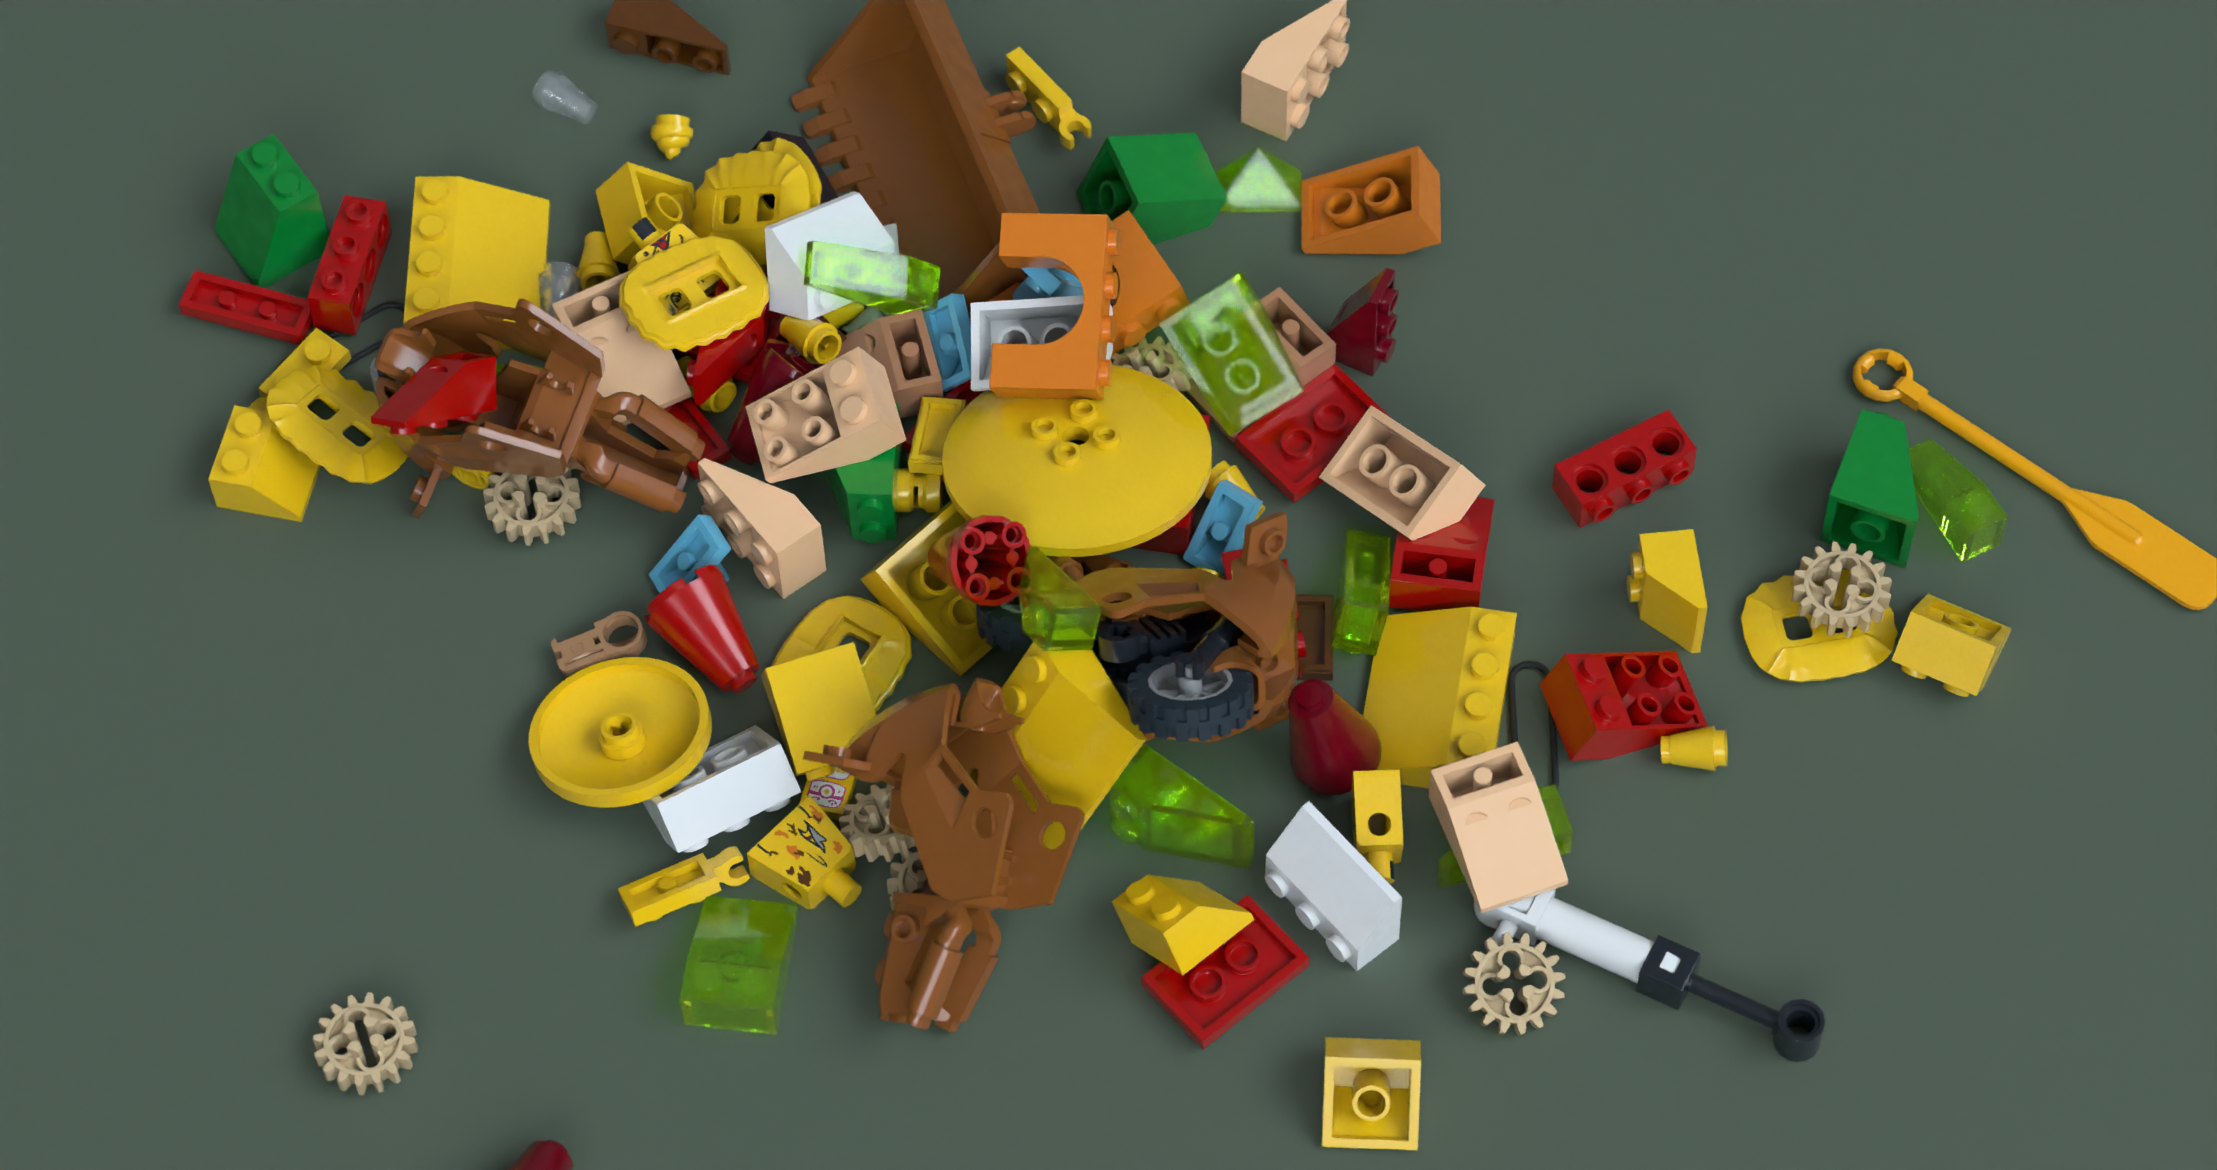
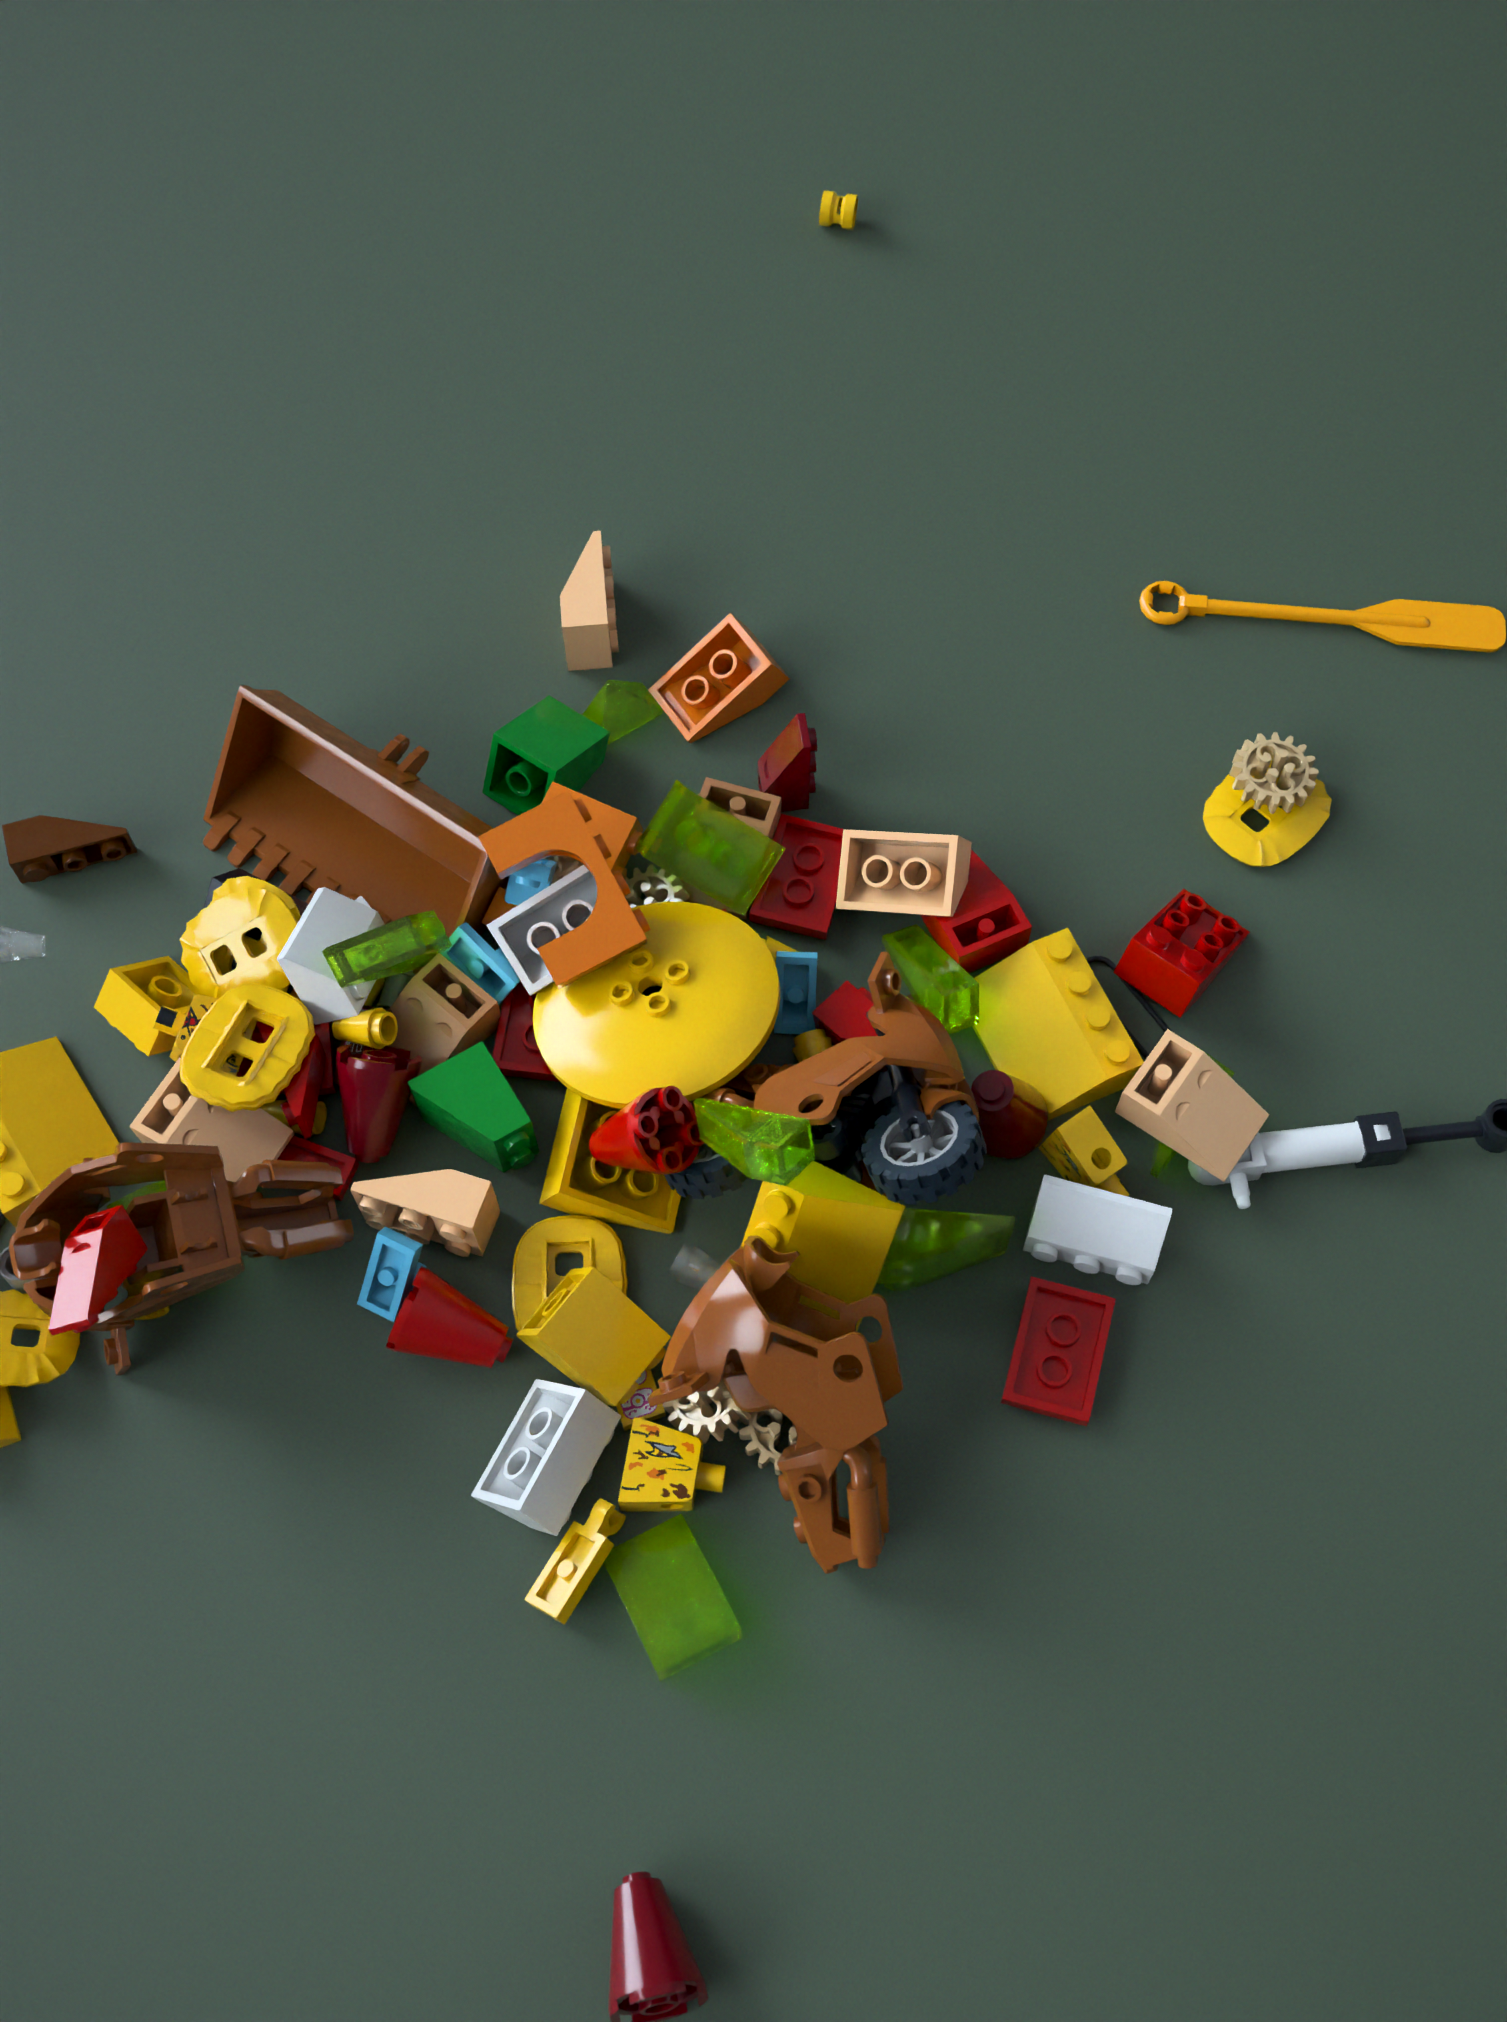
camera: 35 degrees left, 5 degrees up
(352, 1066) = (374, 1897): tan gear -> none
(513, 514) = (208, 1322): tan gear -> none
(556, 283) = (117, 1109): clear cone -> none
(593, 645) = (356, 1400): medium nougat piece -> none
(596, 261) = (137, 1070): yellow cone -> none
(620, 732) = (435, 1461): yellow dish -> none
(671, 133) = (125, 925): yellow plate -> none
(826, 418) = (436, 1091): light nougat slope -> none
(929, 491) = (543, 1098): yellow wheel -> none
(930, 433) = (519, 1048): yellow tile -> none
(1045, 96) = (385, 724): yellow plate -> none
(1178, 919) = (1001, 1332): yellow slope -> none
(1371, 1093) = (1243, 1378): yellow slope -> none
(1529, 961) = (1281, 1198): tan gear -> none
(1629, 450) = (1051, 756): red brick -> none
(1669, 586) = (1159, 841): yellow slope -> none
(1696, 748) = (1260, 953): yellow cone -> none
(1874, 492) = (1240, 686): green slope -> none
(1950, 645) = (1371, 770): yellow slope -> none
(1956, 501) = (1284, 661): clear neon green slope -> none

